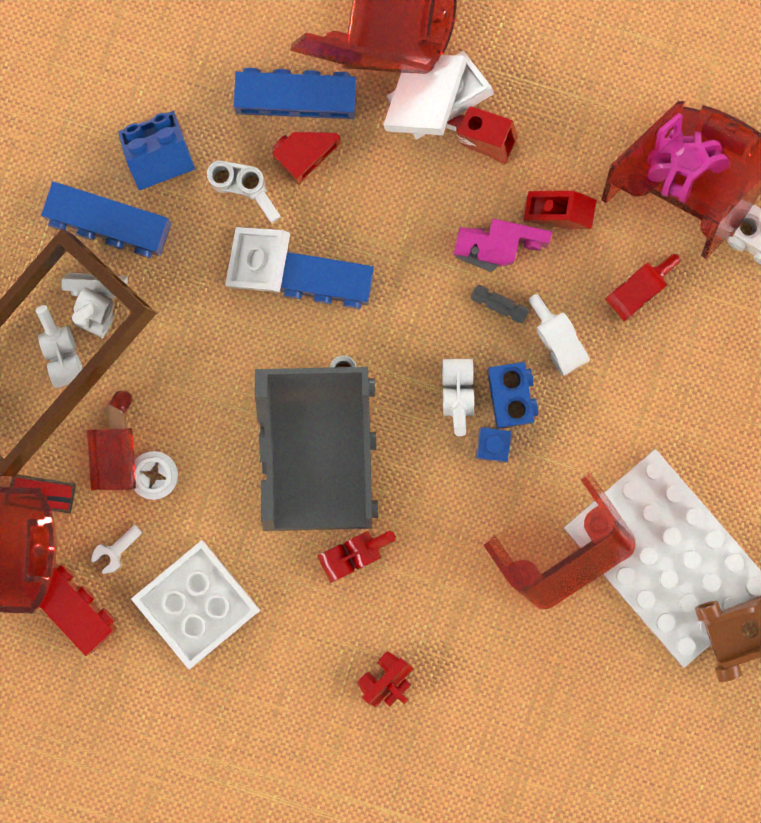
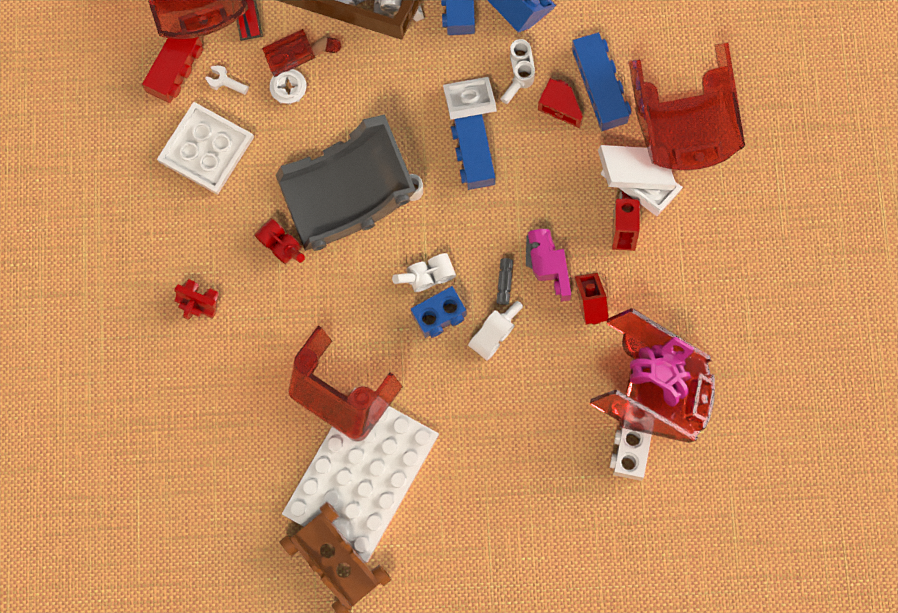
camera: 70 degrees right, 10 degrees down
(493, 445) = (397, 312): blue brick -> none
(640, 287) = (557, 376): red beam -> none

